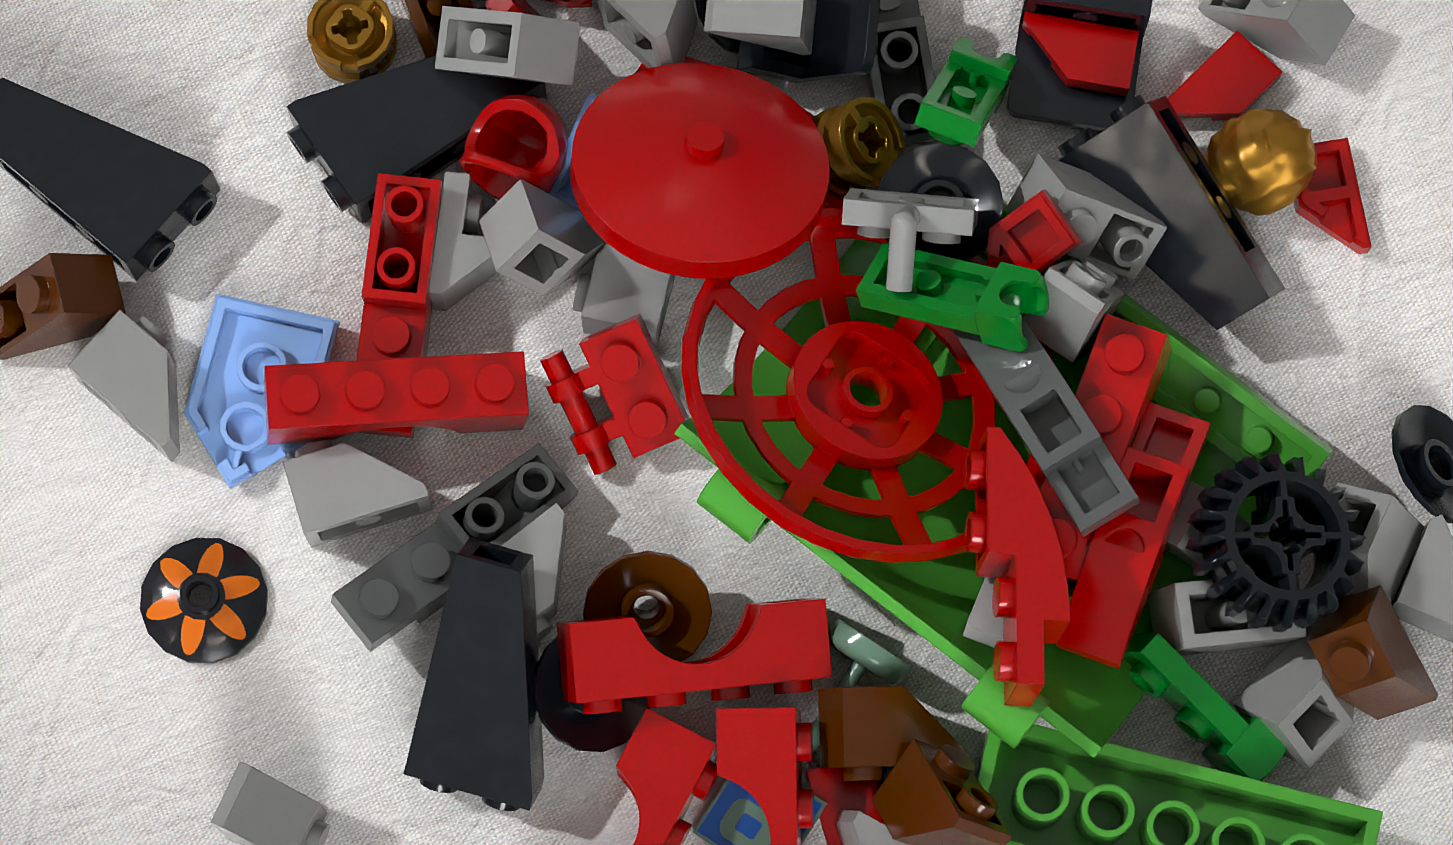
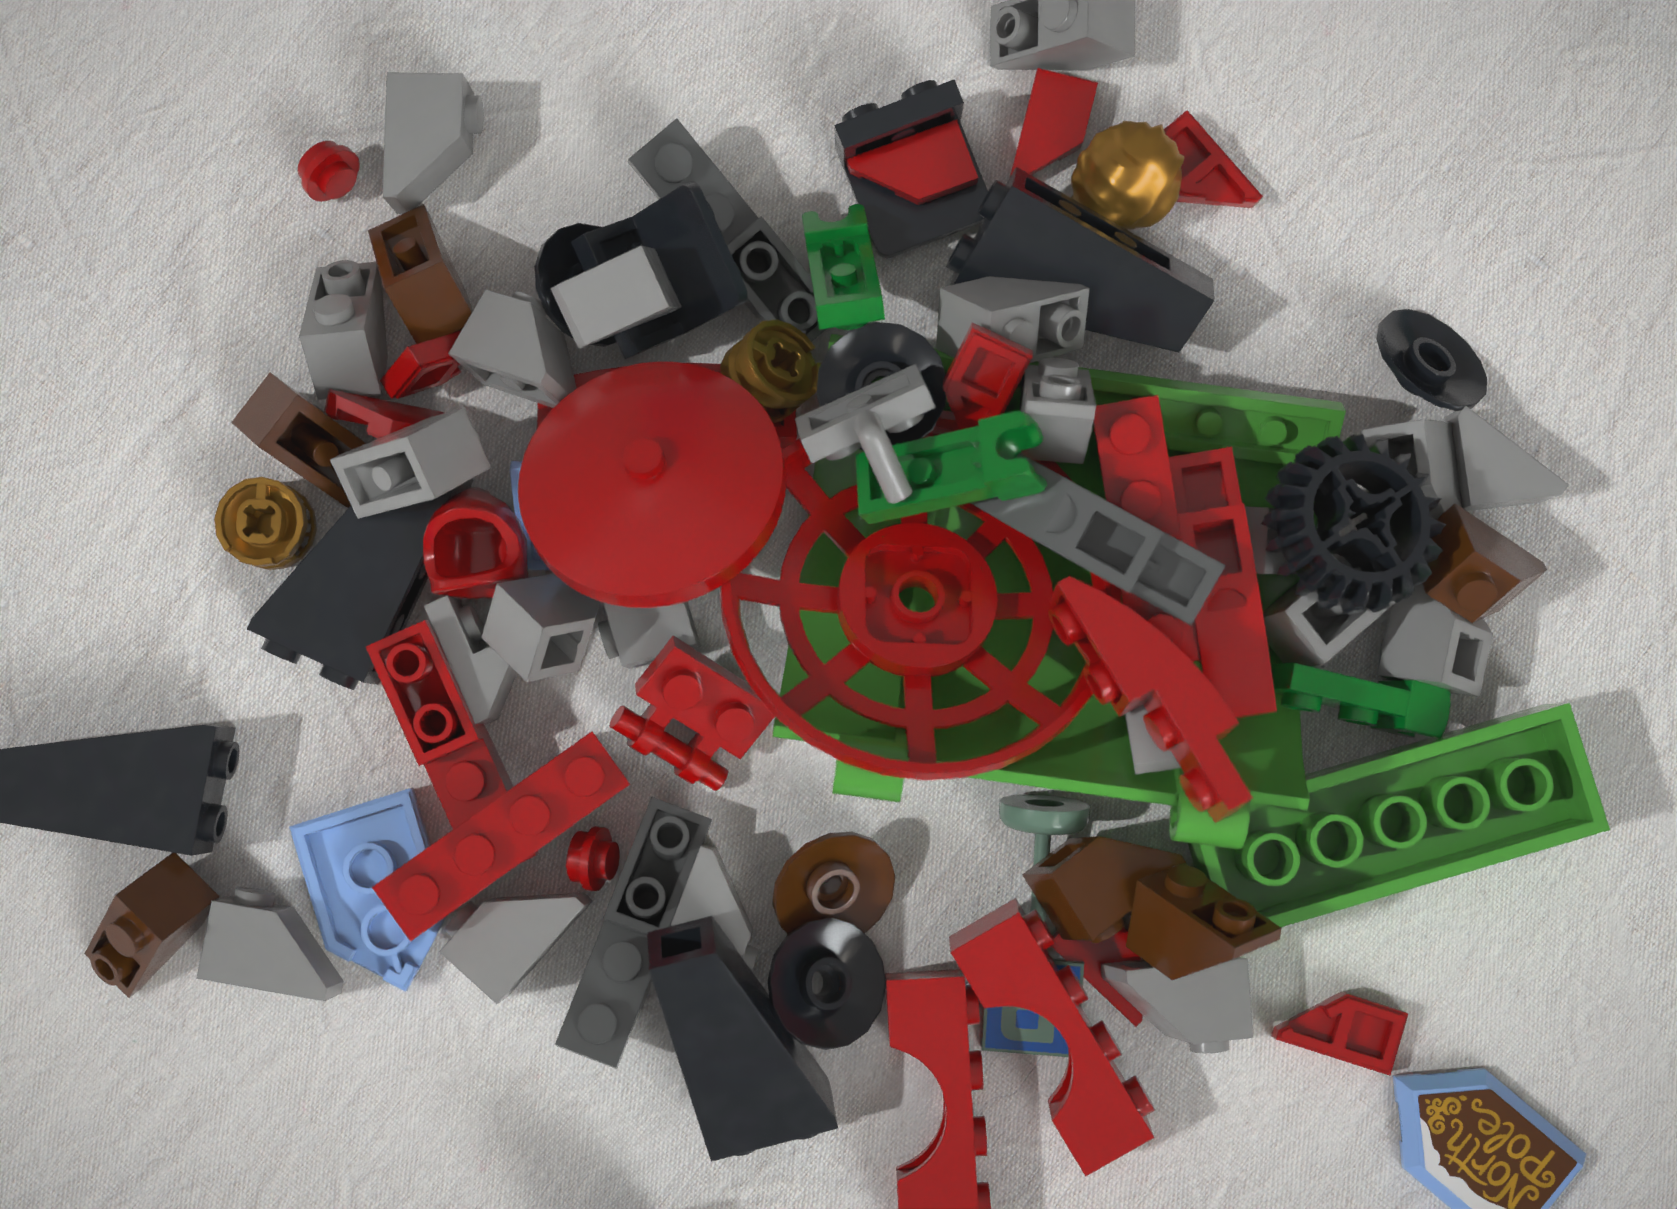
camera: 25 degrees left, 10 degrees up
(222, 624) = (469, 1080): black dish -> none
(456, 467) = (592, 858): none -> red plate
(773, 644) = (961, 858): red arch -> none

